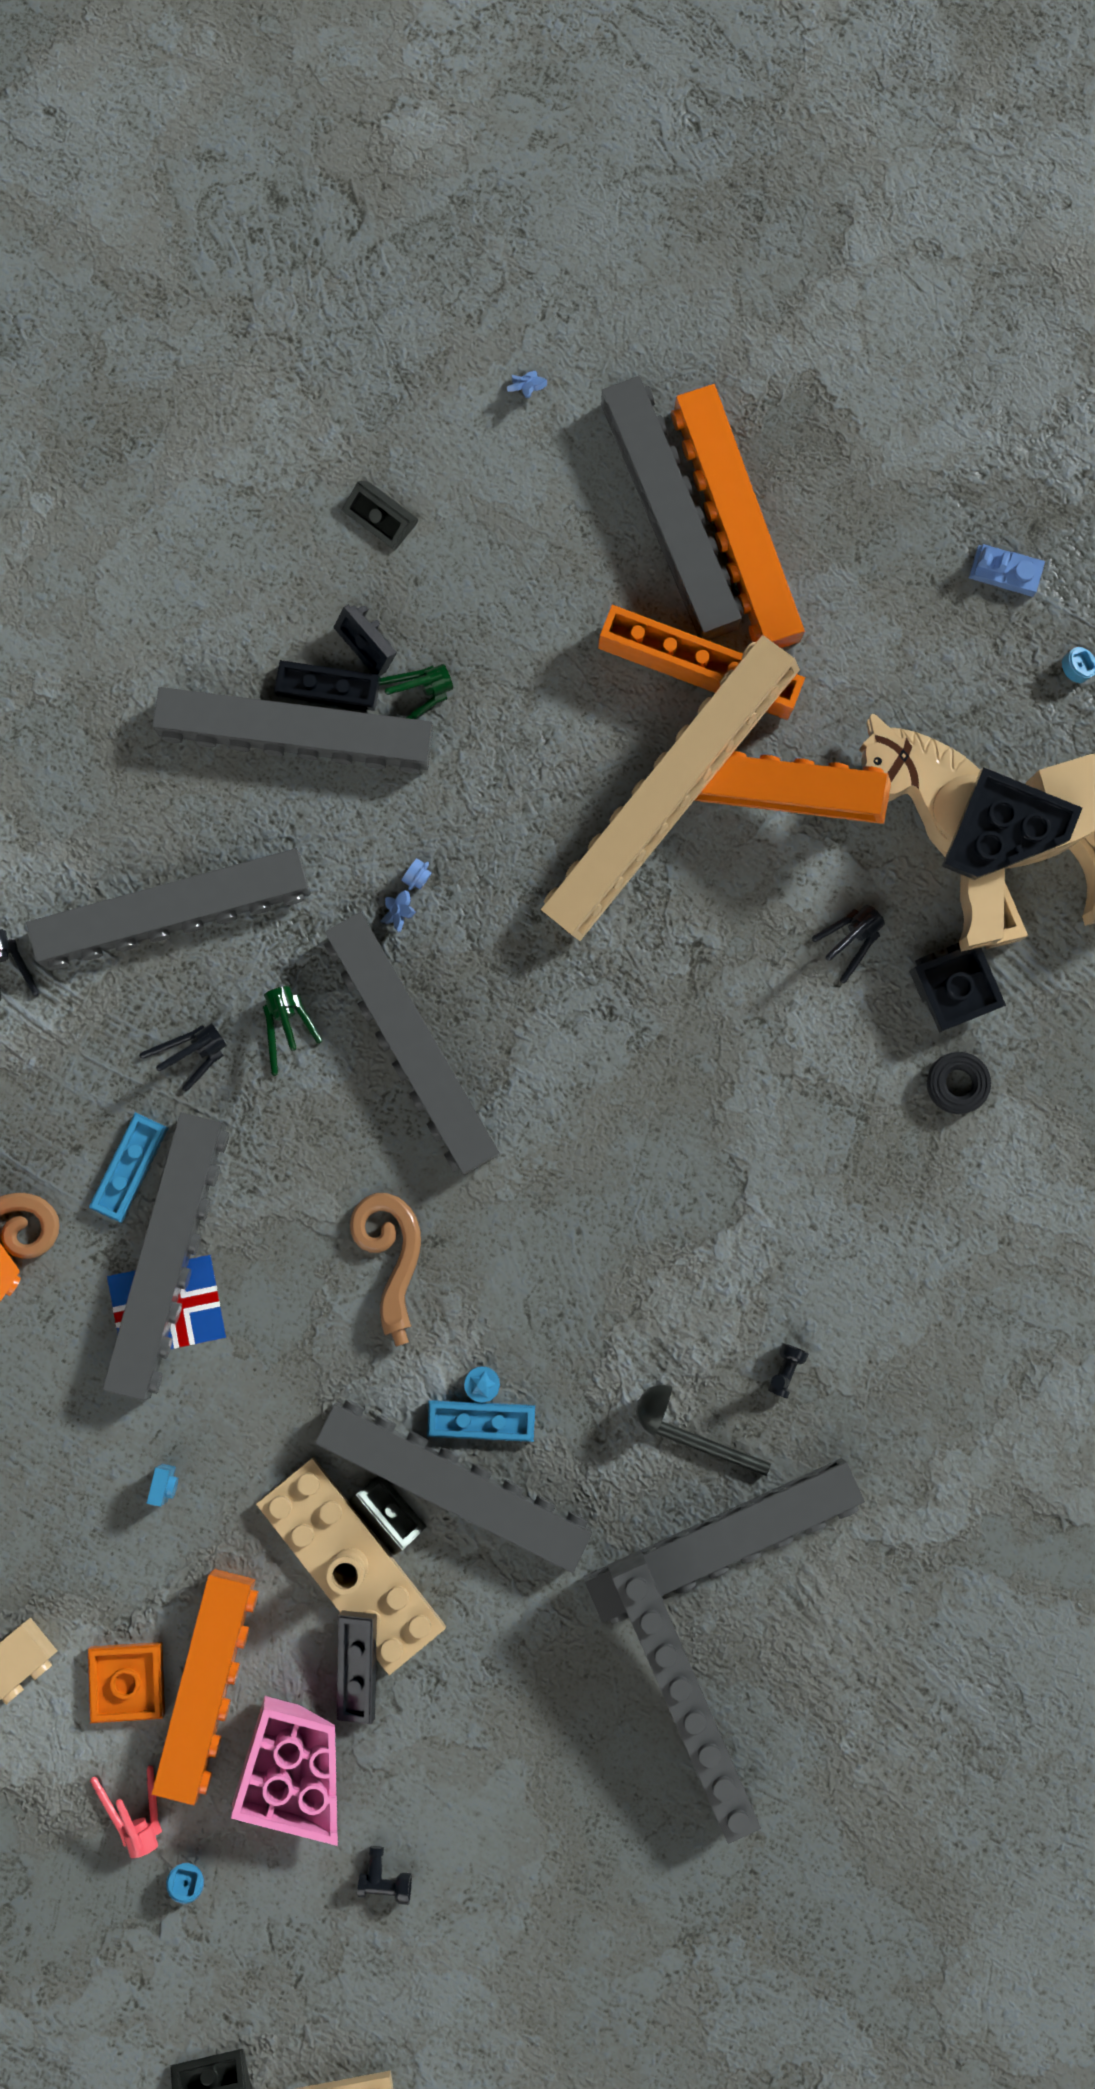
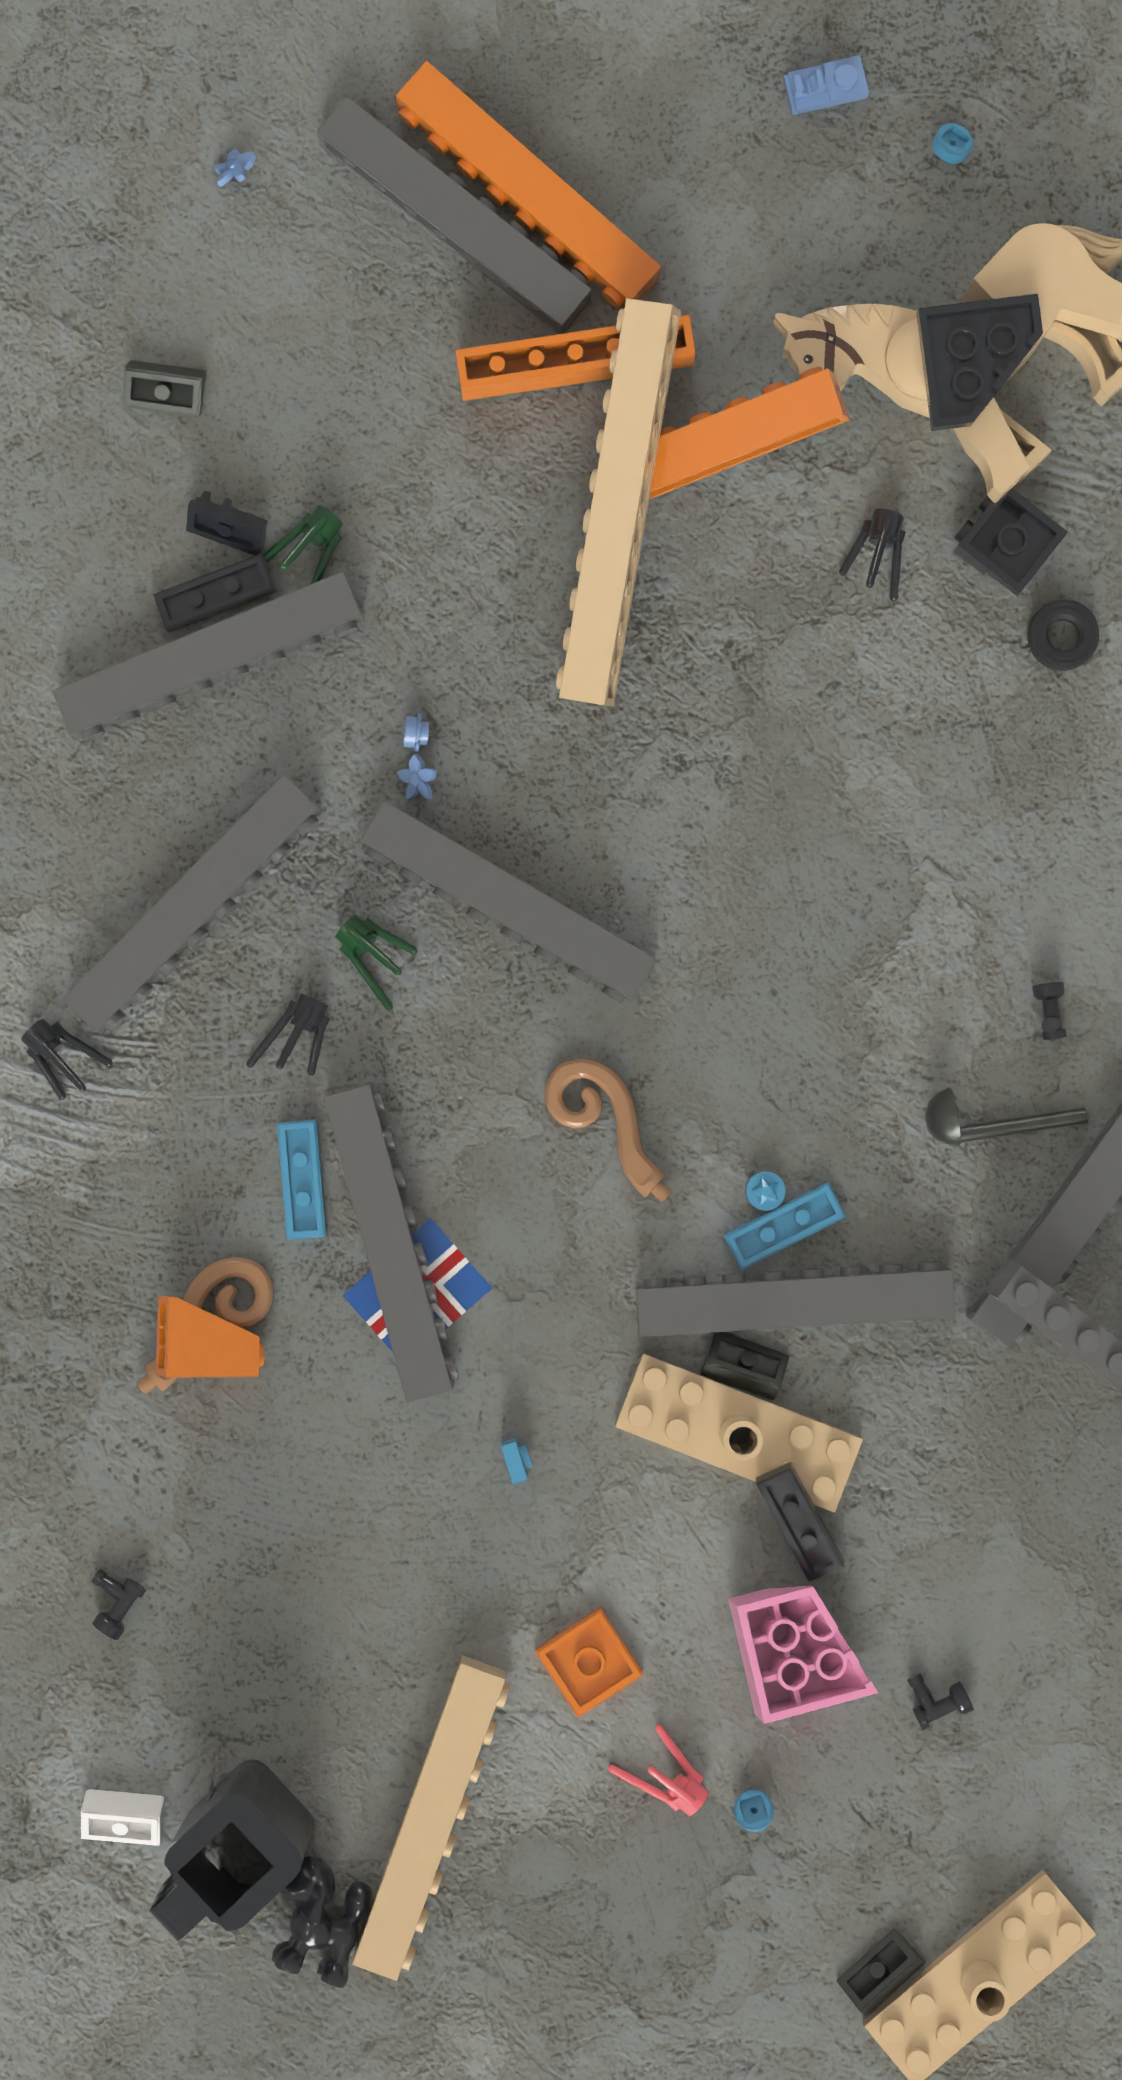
camera: 25 degrees left, 5 degrees up
(204, 1686) = (666, 1623): orange brick -> none

